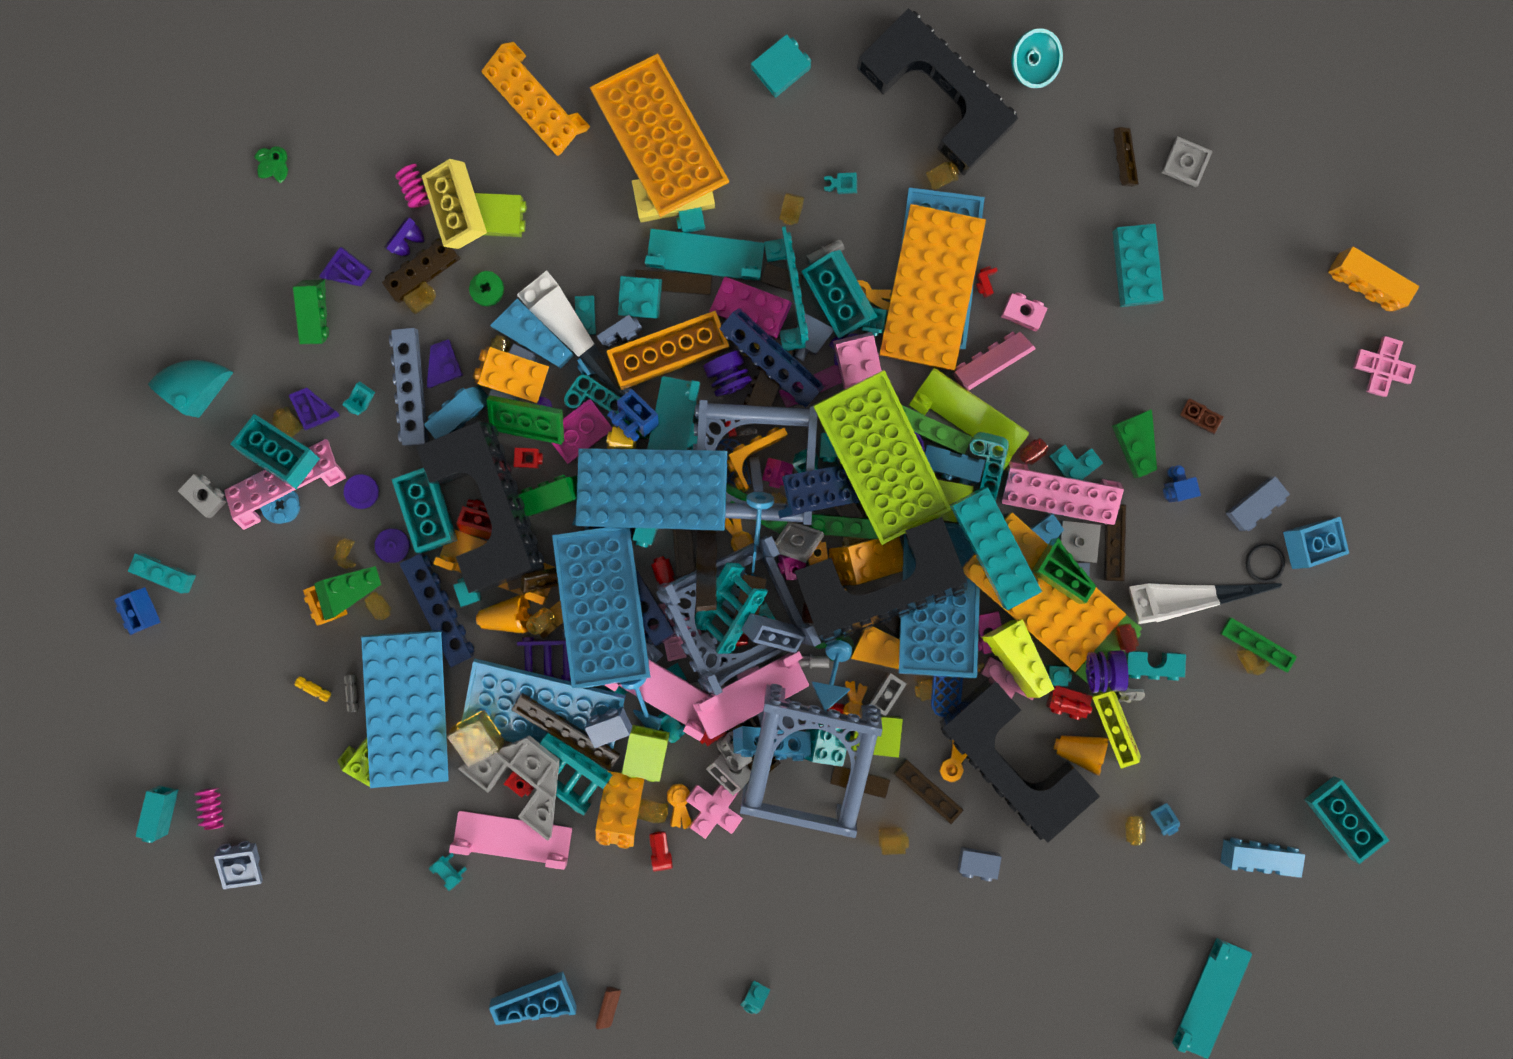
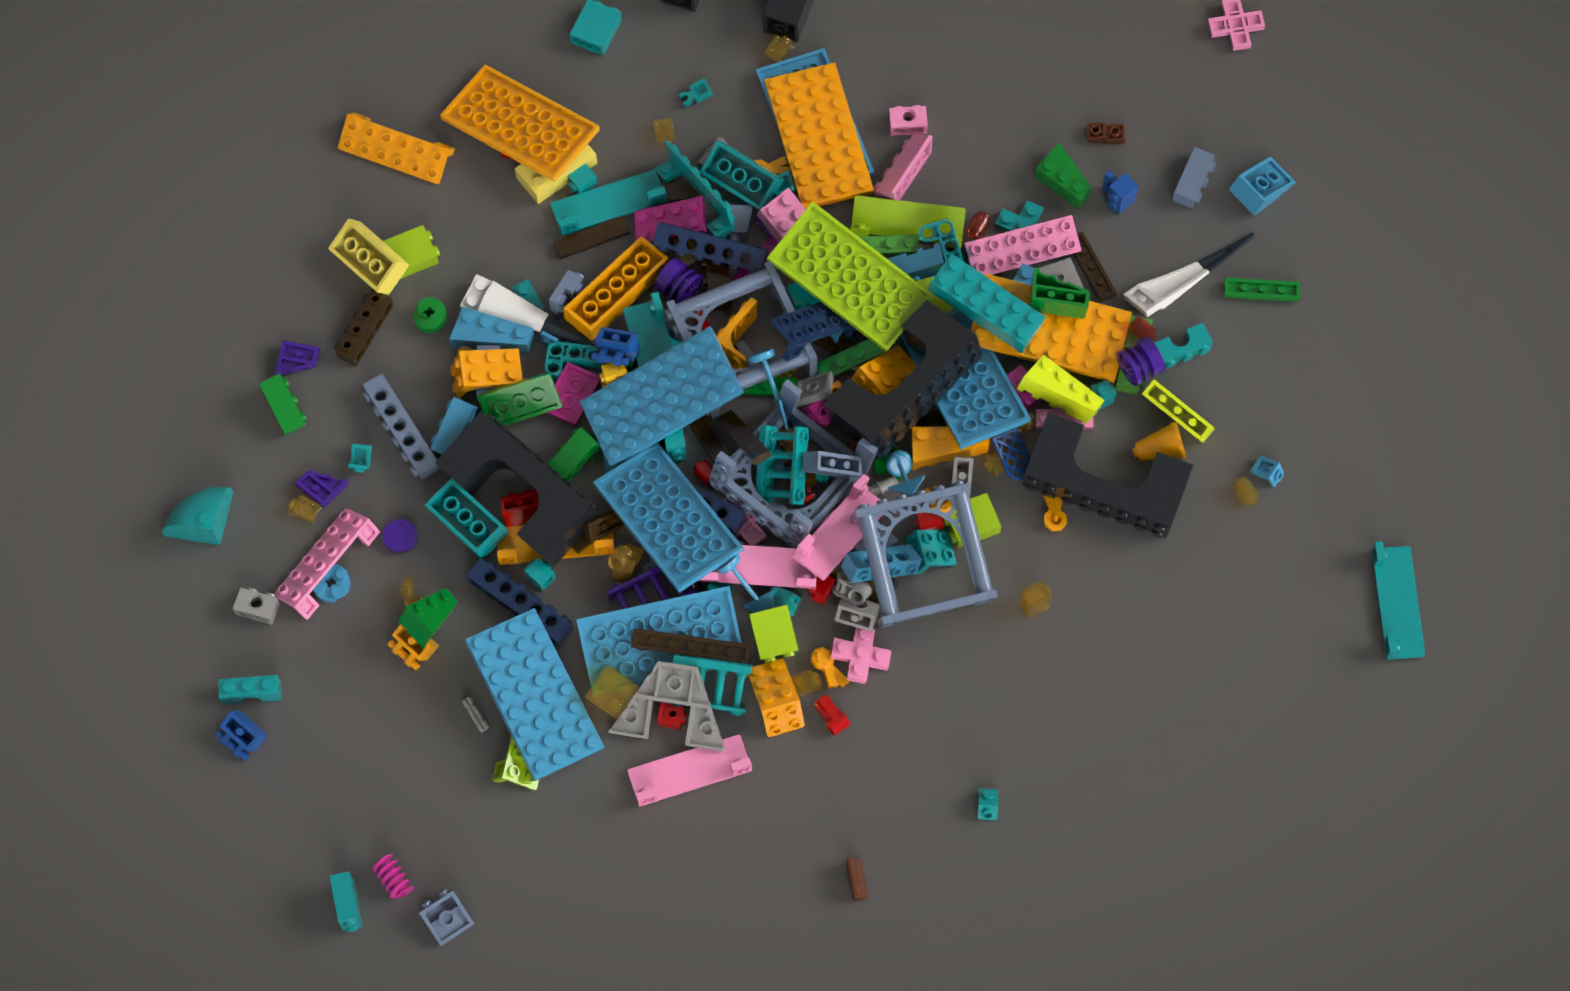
camera: 25 degrees left, 20 degrees down
(269, 165) = (186, 306): green plate -> none
(275, 451) = (307, 530): teal brick -> none
(312, 689) = (438, 727): yellow axle -> none
(378, 606) = (463, 625): clear yellow brick -> none
(392, 545) = (450, 570): dark purple piece -> none
(408, 230) = (335, 300): dark purple tile -> none
(411, 186) = (323, 265): dark pink piece -> none
(420, 298) = (375, 349): clear yellow bracket -> none
(442, 364) = (421, 397): dark purple wing -> none
(447, 871) = (647, 827): teal piece -> none
(506, 615) = (584, 576): light orange cone -> none
(521, 454) = (539, 429): red brick -> none
(534, 1001) = (789, 899): dark azure wedge -> none
(608, 727) = (727, 617): brick -> none
(639, 297) = (569, 255): teal brick -> none
(740, 538) = (752, 410): light orange piece -> none
(775, 470) = (765, 340): dark pink brick -> none
(874, 785) = (996, 567): dark brown tile -> none
(928, 791) = (1045, 549): dark brown tile -> none
(979, 863) = (1124, 586): sand blue brick -> none
(984, 286) = (860, 113): red bracket -> none
(1069, 701) = (1125, 412): red brick -> none
(1130, 694) = (1176, 381): light grey piece -> none
(1137, 265) = (983, 41): teal brick -> none
(1249, 662) = (1263, 307): clear yellow bracket -> none
(1263, 858) = (1369, 460): wedge -> none
(1281, 568) = (1229, 238): black piece -> none
(1346, 819) = (1422, 392): teal brick -> none

